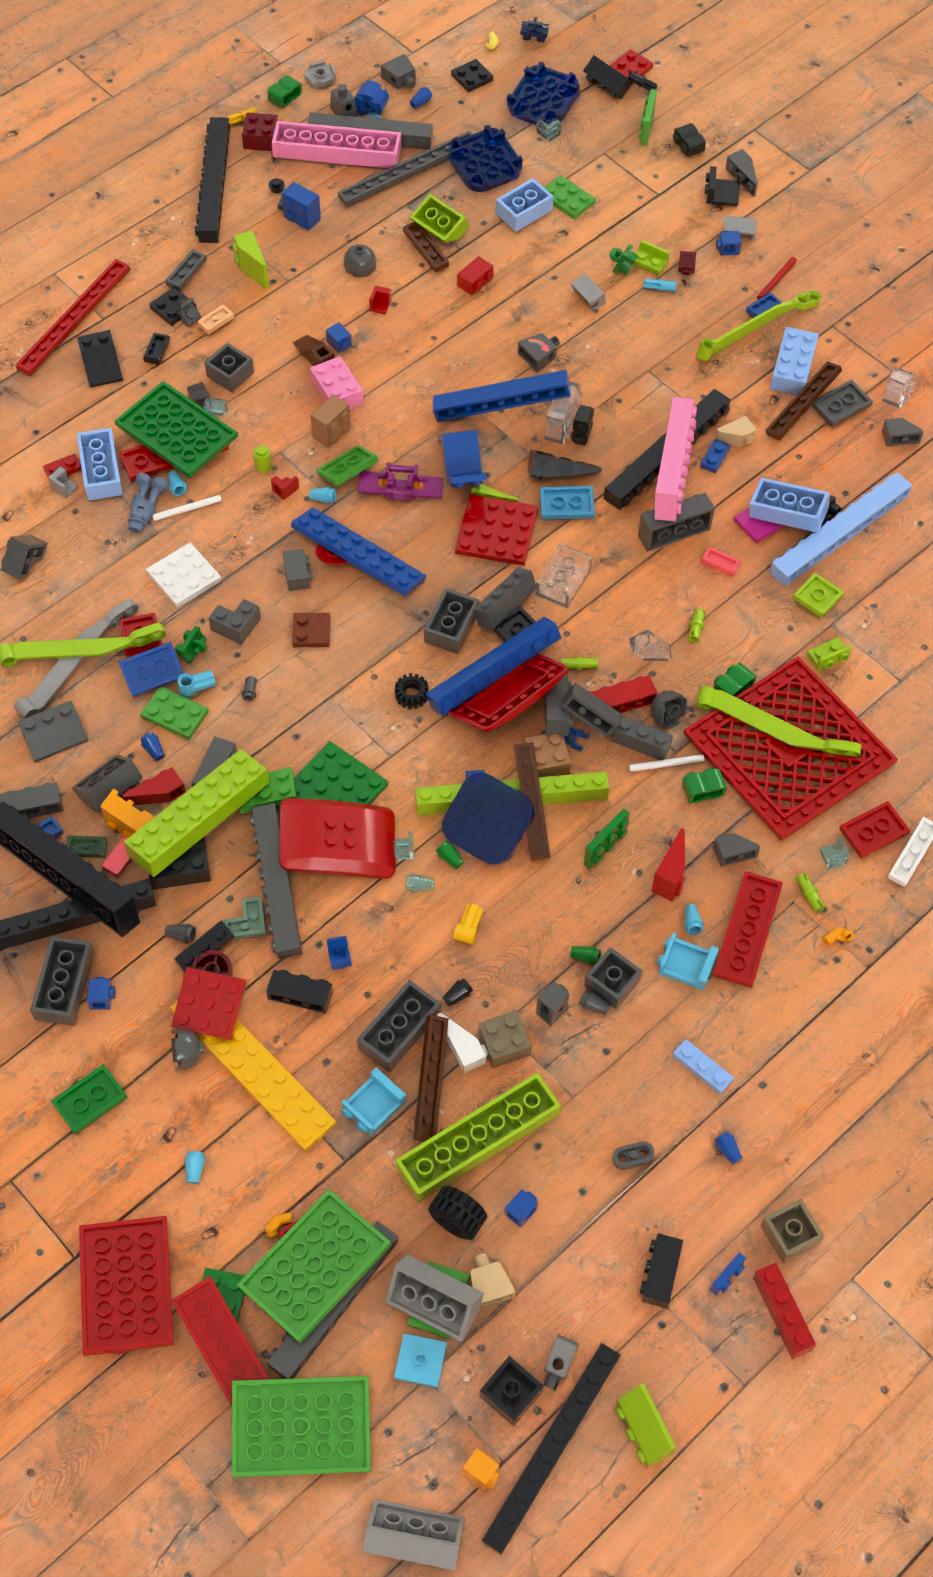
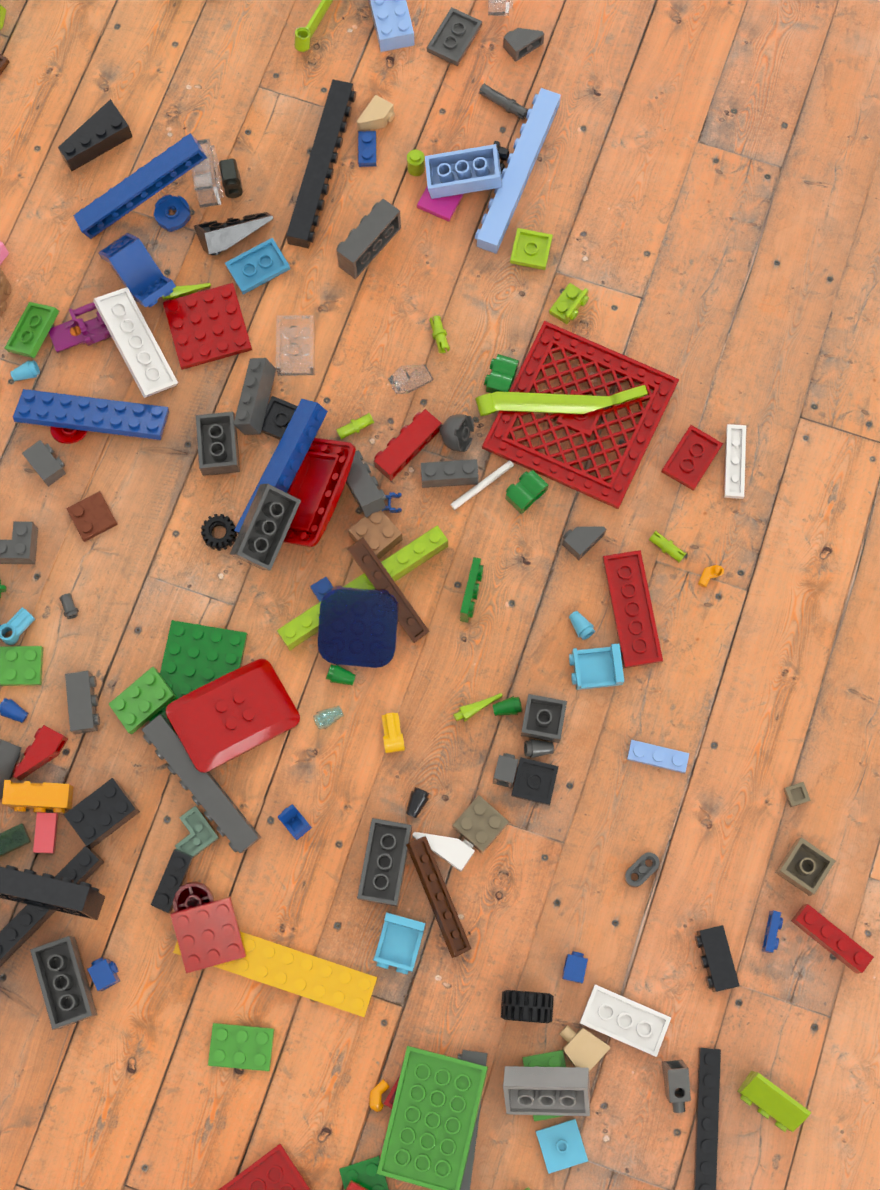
camera: 25 degrees left, 15 degrees up
(89, 1099) = (151, 1076): green plate -> none
(181, 932) = (142, 877): dark grey cone -> none
(181, 1118) = (241, 1047): none -> bright green plate
(186, 1048) = (211, 986): dark grey cylinder -> none
(194, 1165) = (277, 1084): medium azure cone -> none
(196, 812) = (94, 762): lime brick -> none
(299, 991) = (279, 875): black brick -> none
(403, 847) = (295, 689): clear light blue panel -> none
(428, 512) = (135, 342): none -> white plate
(453, 697) = (265, 527): none -> dark grey brick
(475, 275) = (41, 61): red brick -> none
(477, 1137) = (506, 927): lime brick -> none
(486, 348) = (95, 137): none -> black wedge
(511, 1391) = (651, 1133): black brick -> none
(517, 439) = (175, 221): none -> blue plate
(538, 350) = (146, 115): dark grey torso -> none
(543, 1280) = (625, 1020): none -> white plate
(549, 941) = (468, 711): none -> lime piece
(575, 1029) = (534, 781): none -> black plate
(589, 291) = (159, 27): light grey hinge -> none
(591, 710) = (394, 473): dark grey brick -> none
(670, 874) = (543, 590): red slope -> none
(674, 459) = (340, 178): bright pink brick -> none
(720, 561) = (427, 257): coral tile -> none
(727, 1145) = (713, 817): blue cone -> none
(750, 482) = (415, 162): none -> lime brick
(803, 400) = (420, 51): reddish brown plate -> none
(819, 1165) = (797, 794): none -> dark tan plate
(835, 854) = (669, 497): clear light blue panel -> none
(861, 475) = (503, 101): none -> dark grey pin

